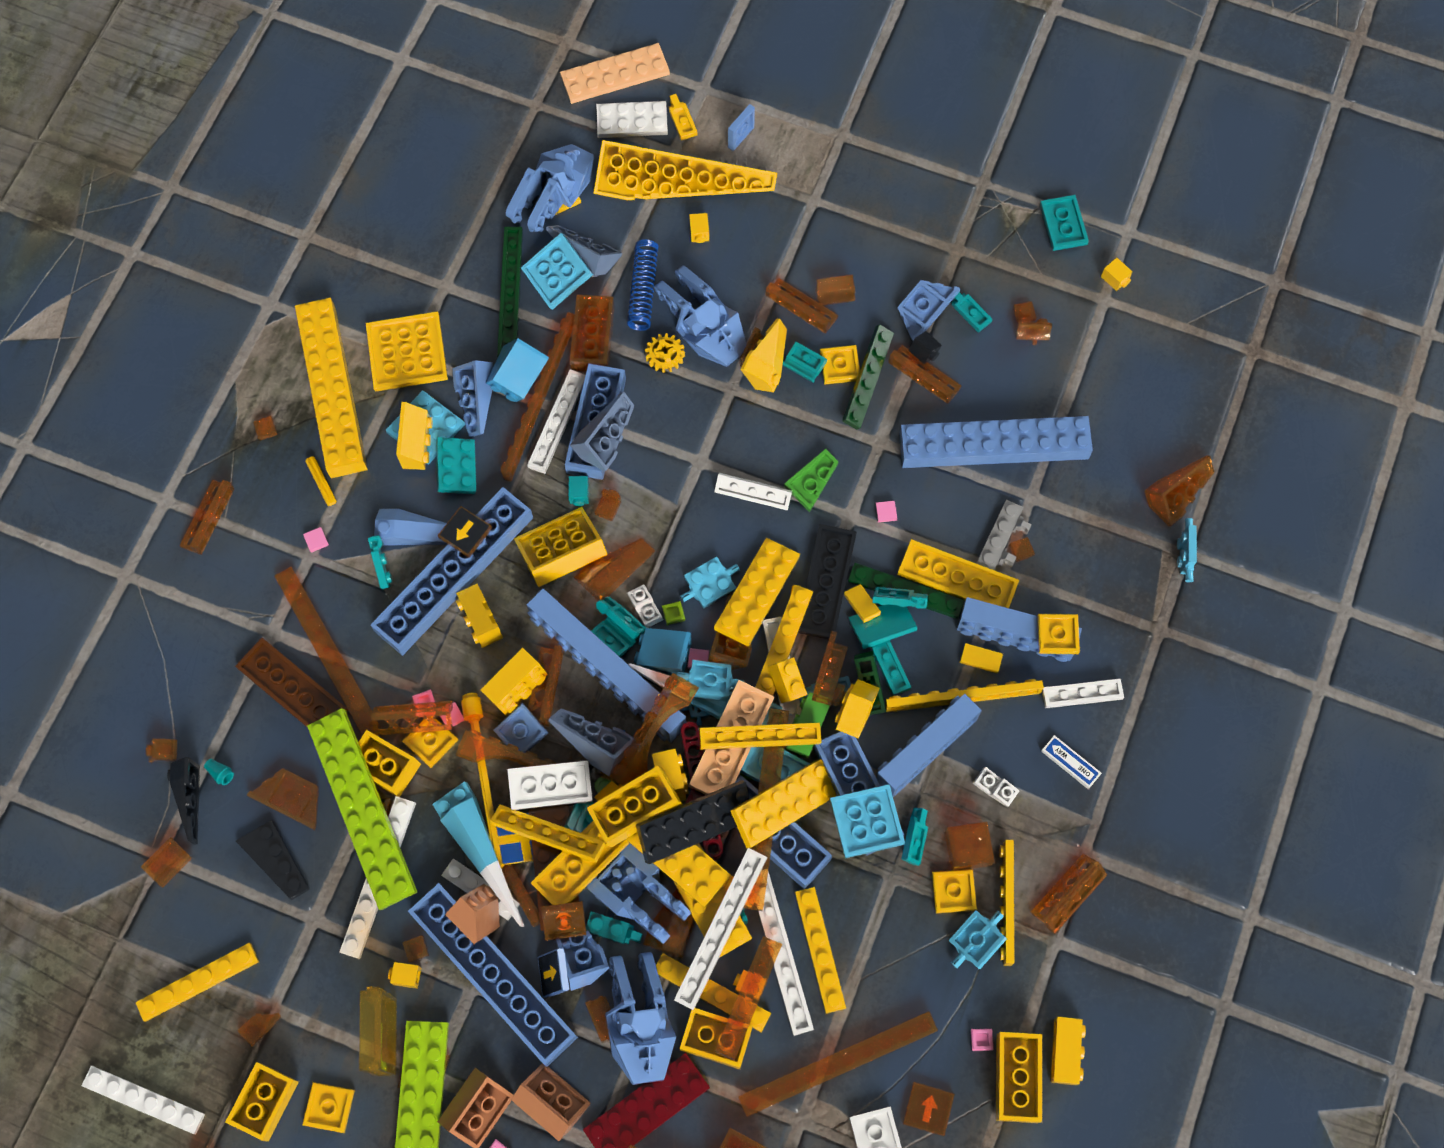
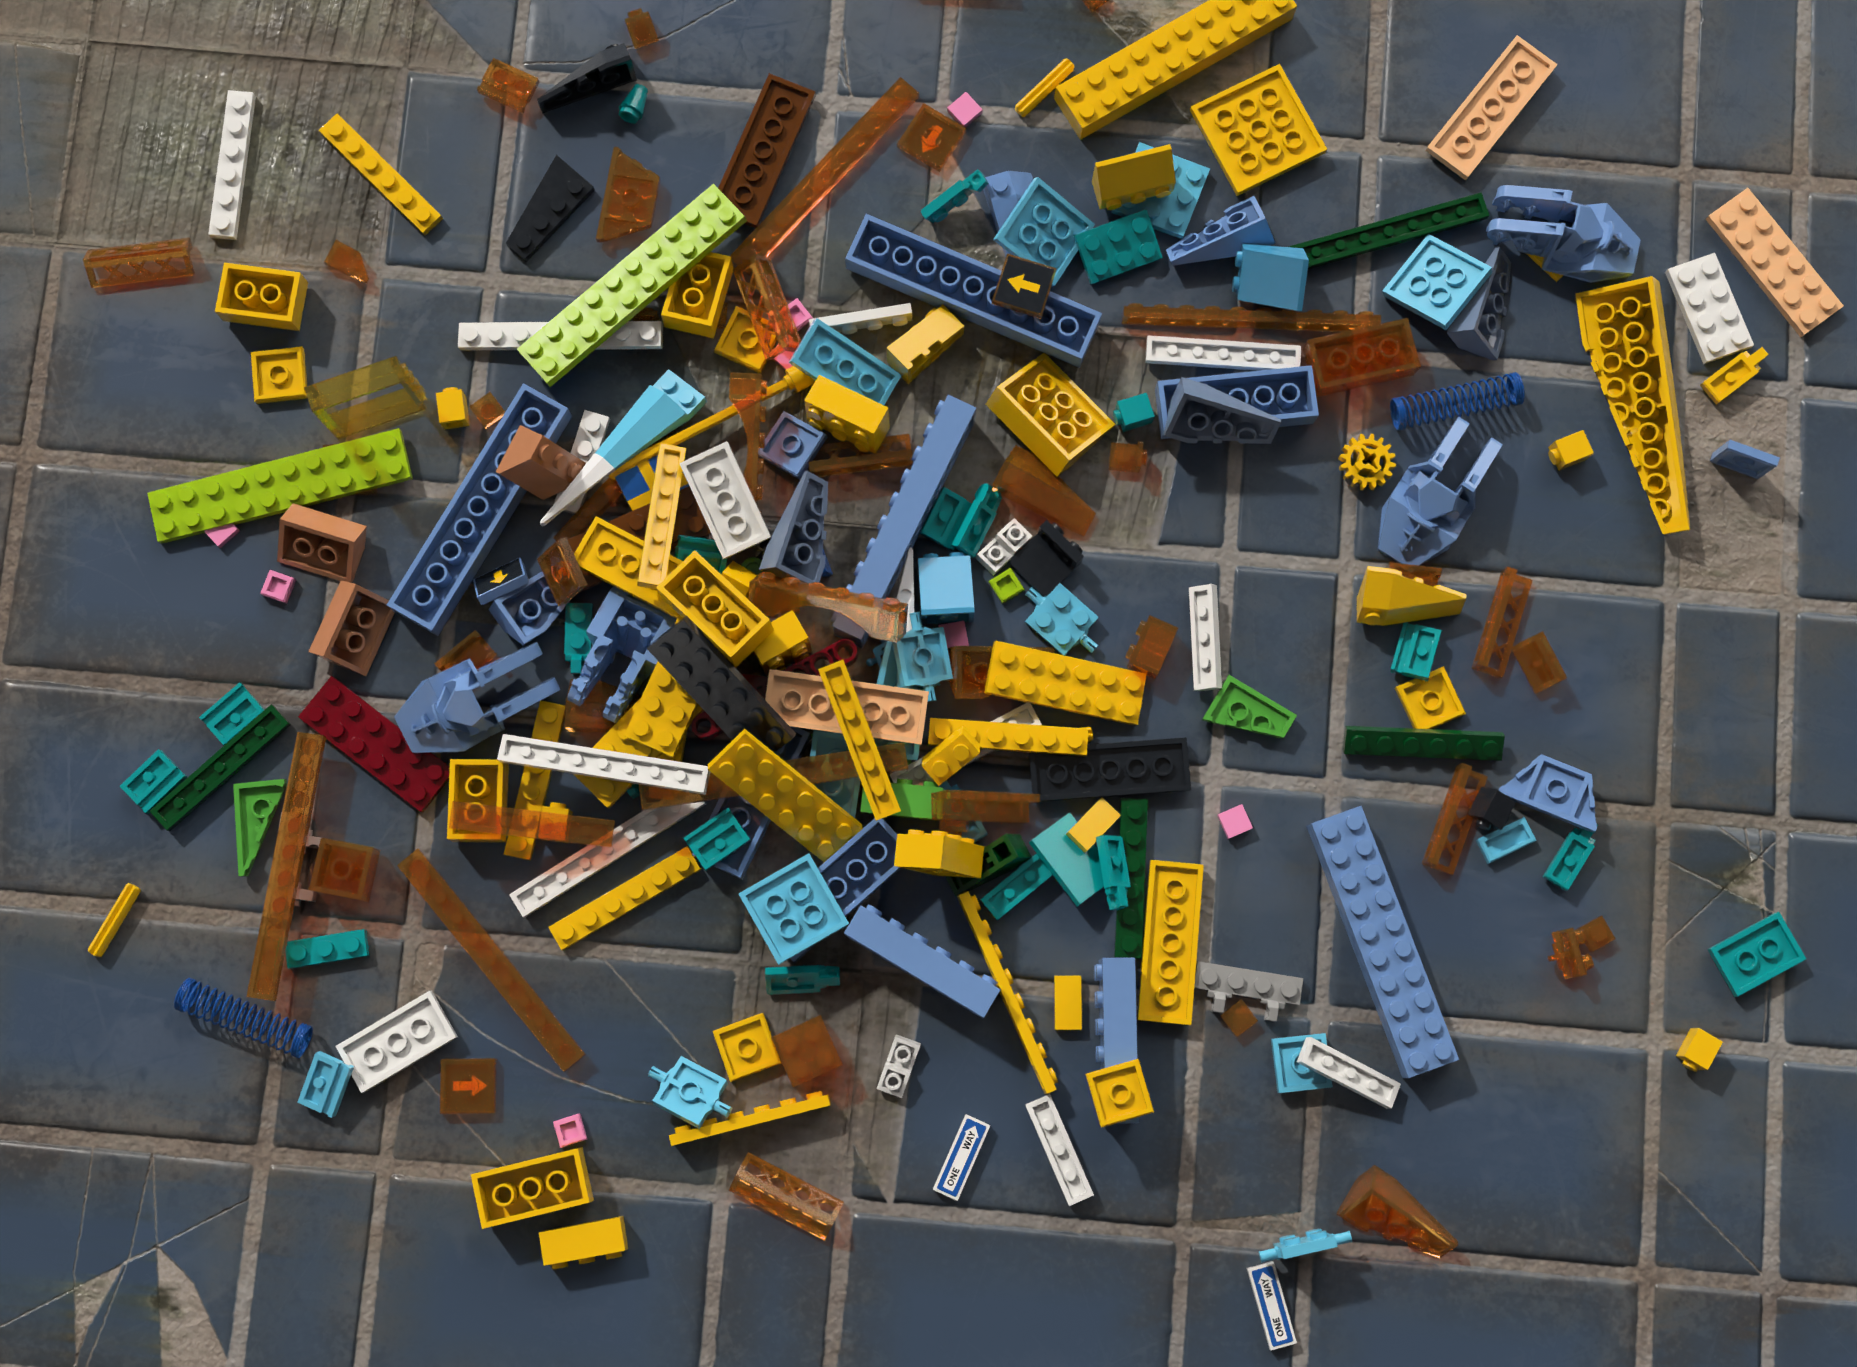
camera: 70 degrees right, 10 degrees up
(327, 568) = (931, 137): none -> clear orange tile
(424, 509) = (1043, 228): none -> medium azure plate
(447, 204) = (1491, 107): none -> light nougat plate
(447, 648) = (871, 319): none -> white plate
(467, 679) = (843, 362): none -> medium azure plate
(663, 578) = (1047, 558): none -> black bracket
(748, 528) = (1151, 646): none -> clear orange brick
(800, 862) = (717, 839): none -> teal plate
(949, 350) = (1505, 841): none -> medium azure tile
(1063, 517) = (1290, 1074): none -> medium azure plate
(1078, 488) = (1348, 1072): none -> white plate
(1221, 586) = (1271, 1305): none -> tile

